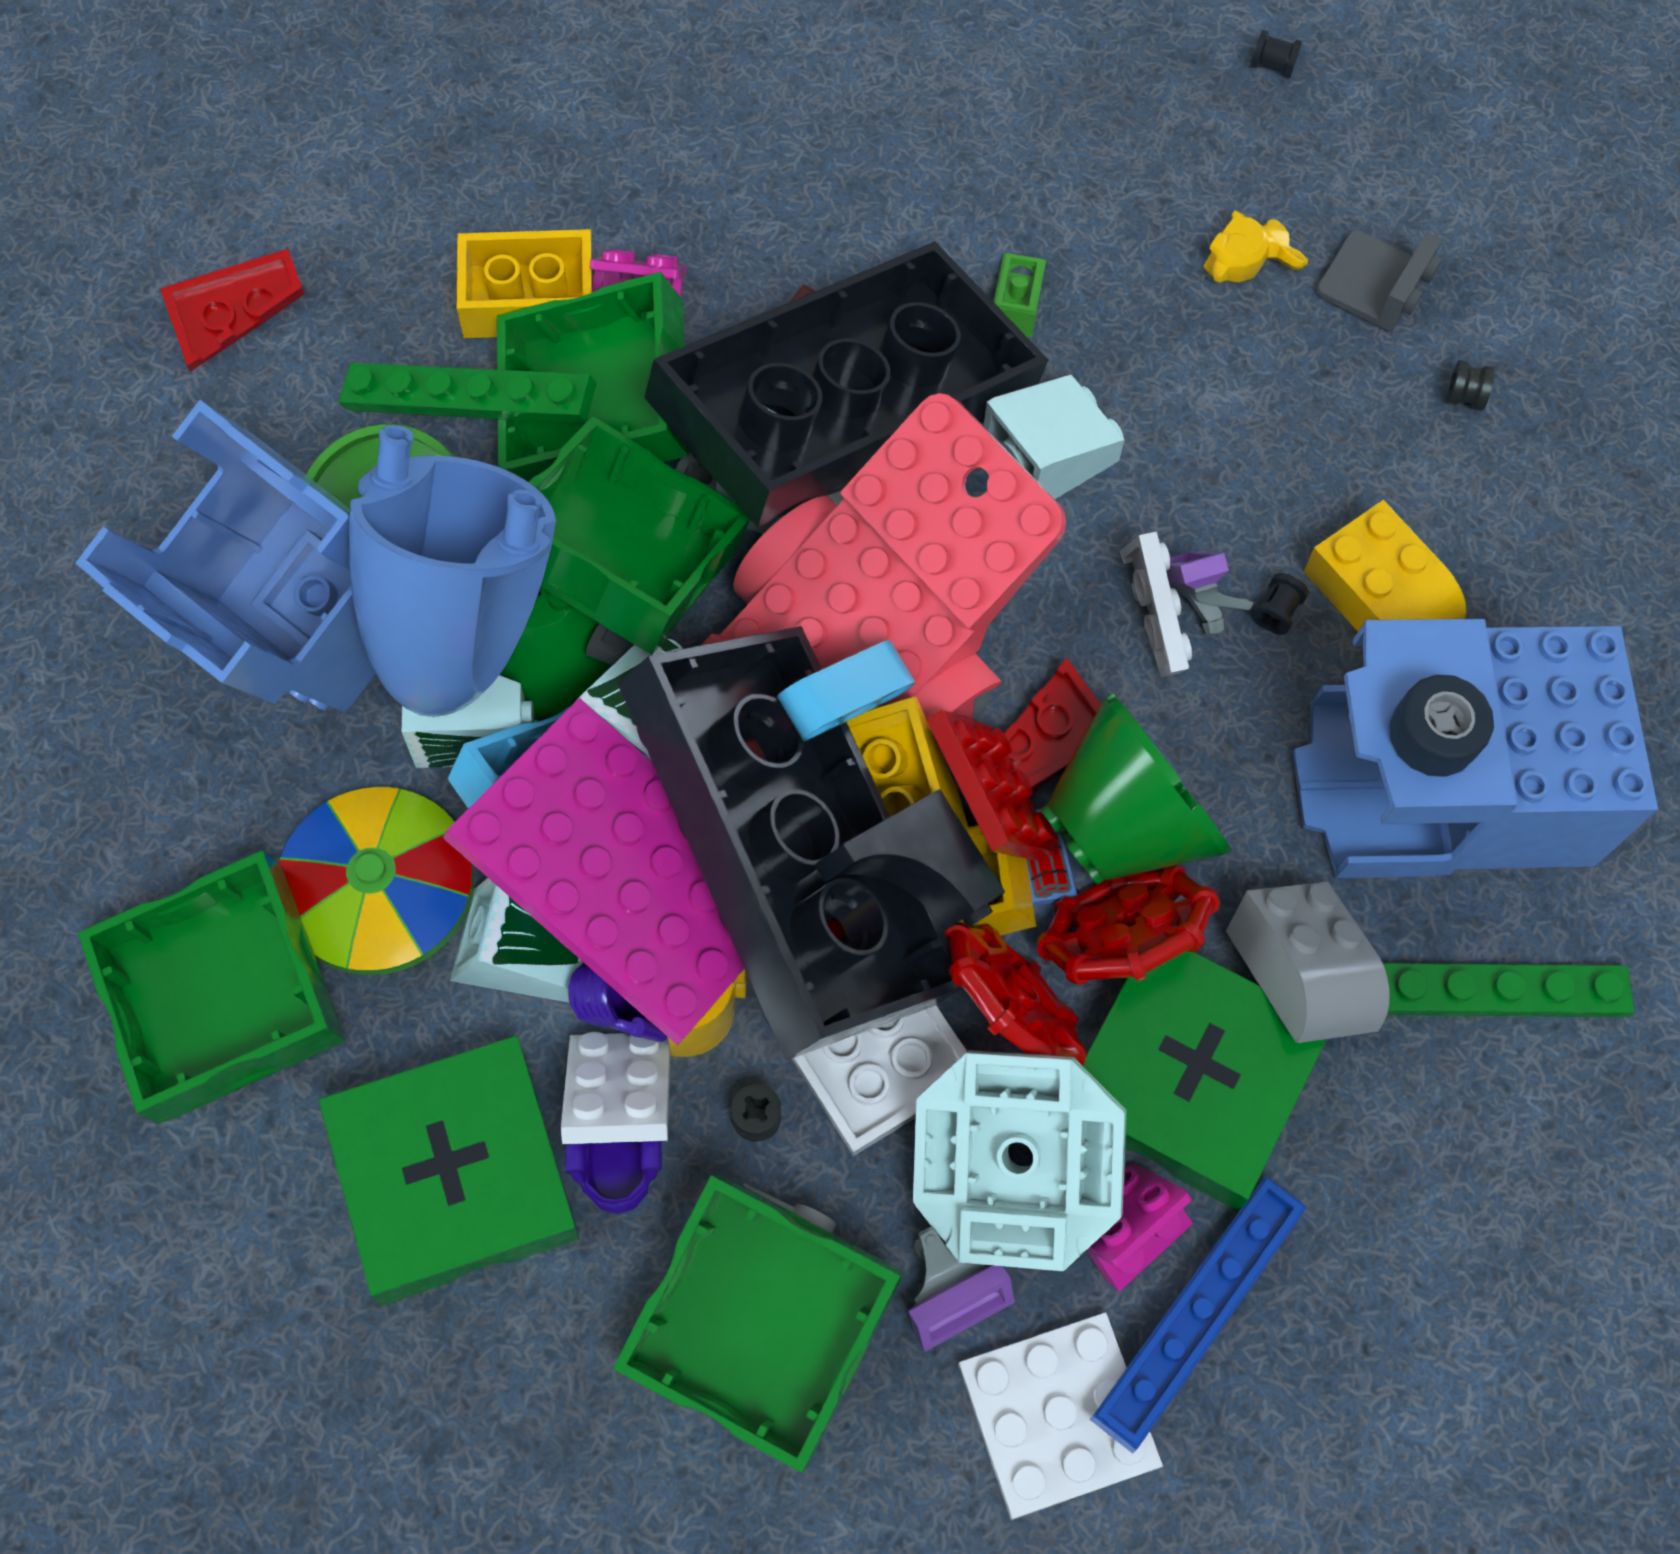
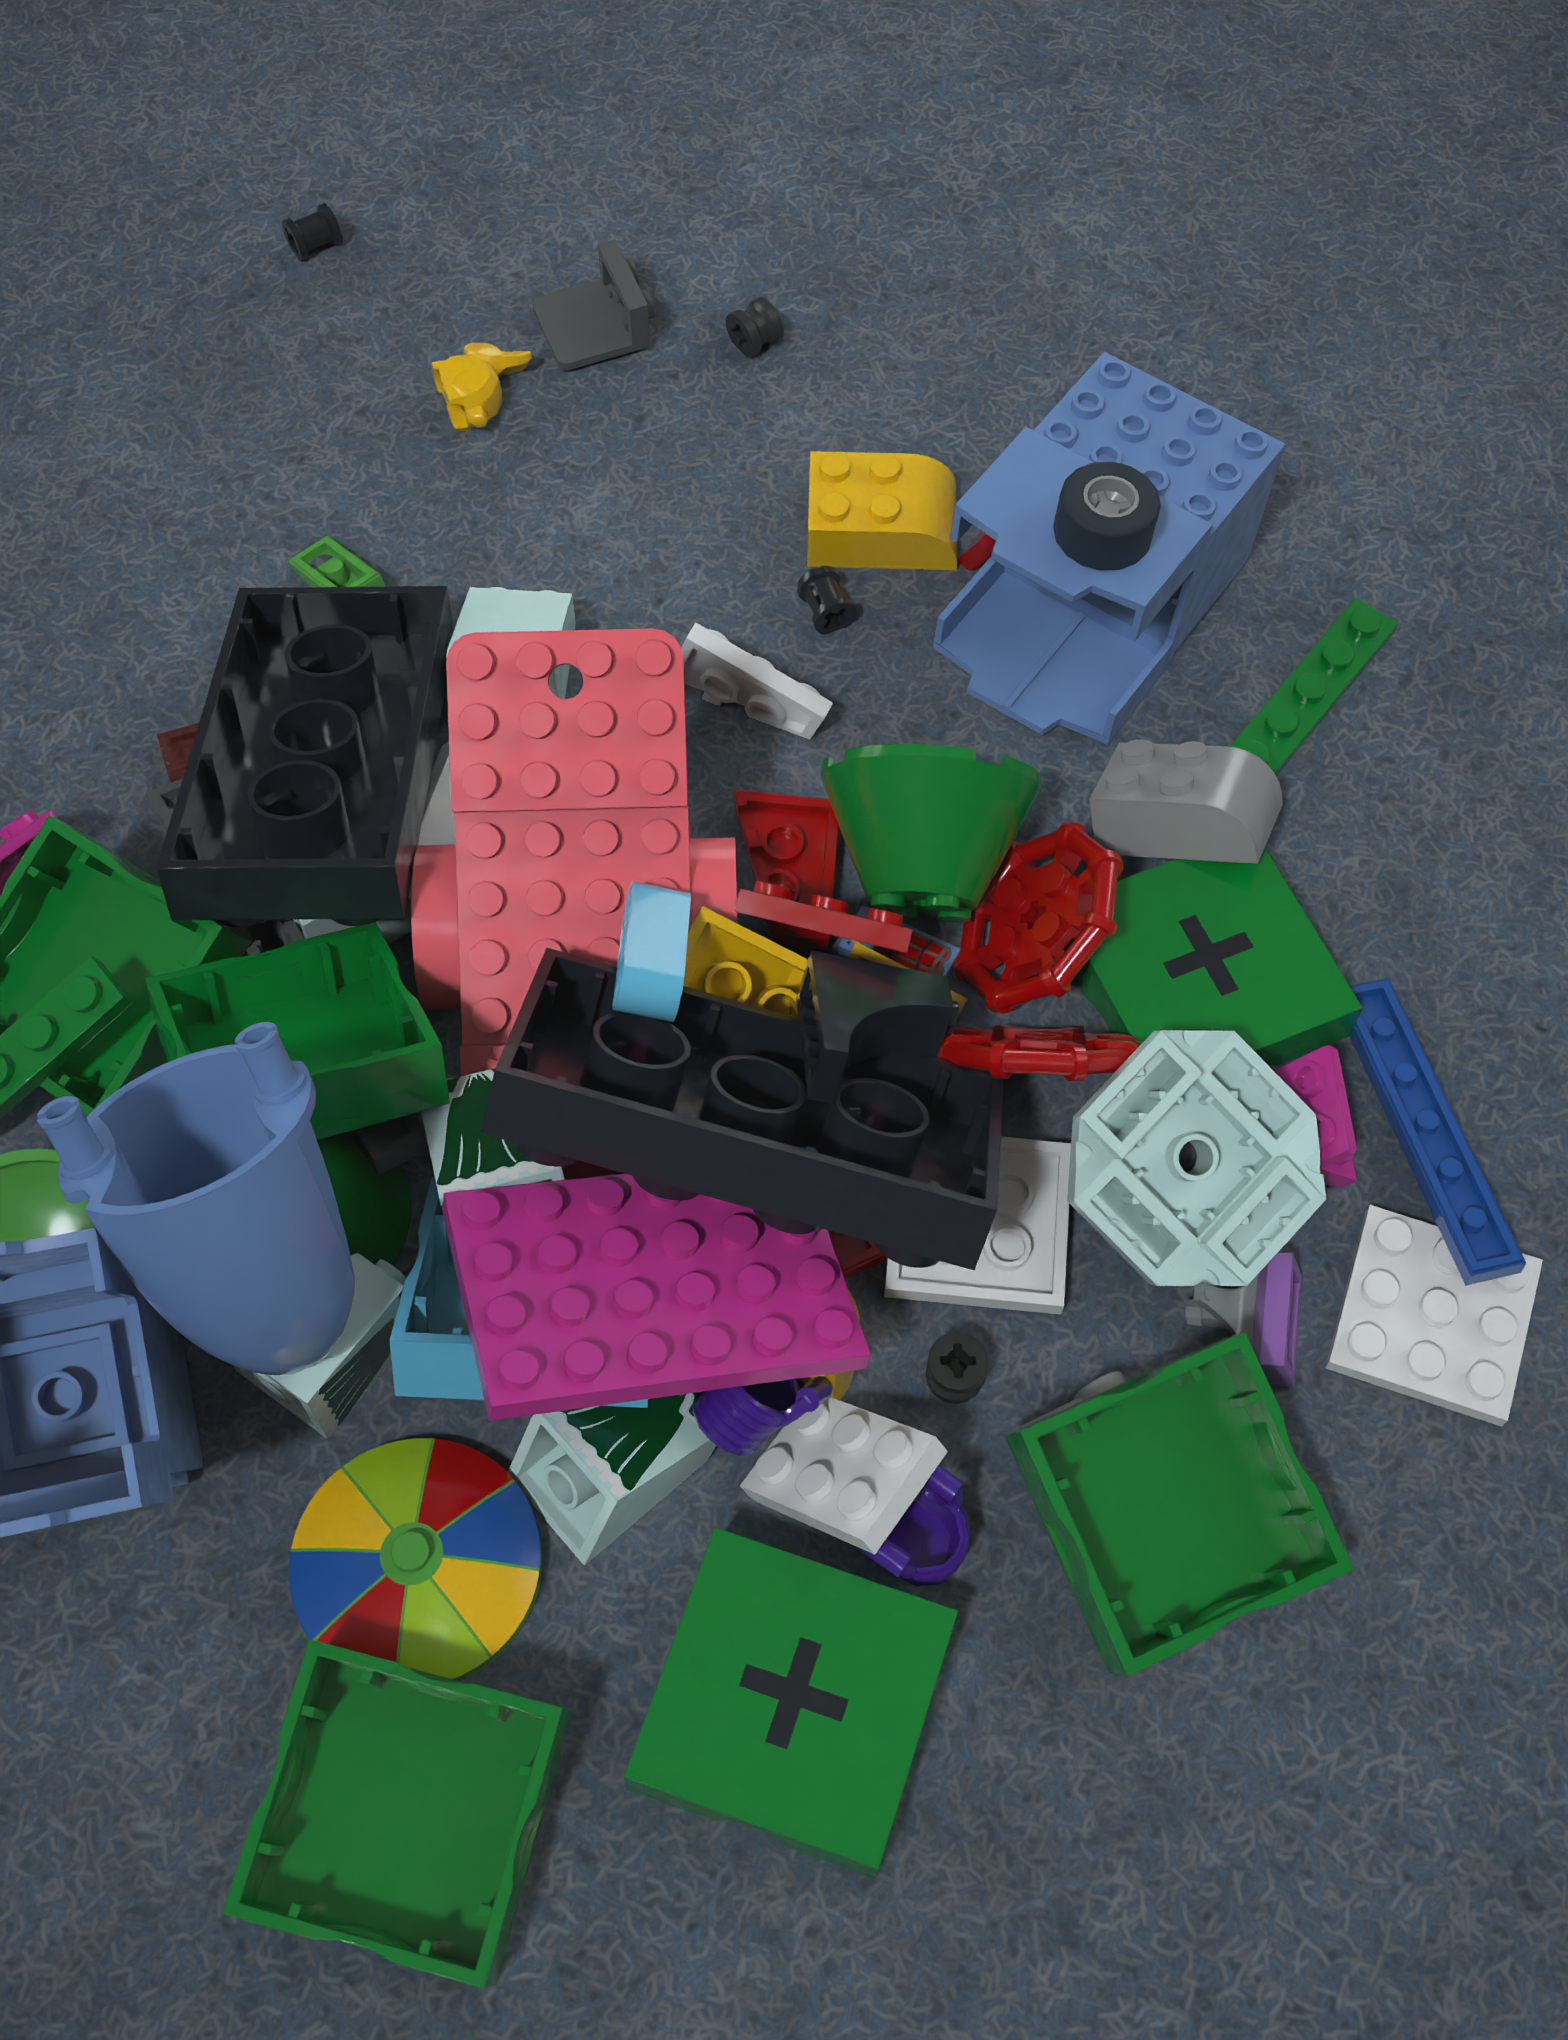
camera: 50 degrees left, 5 degrees down
(1195, 578) = (758, 632): piece -> none

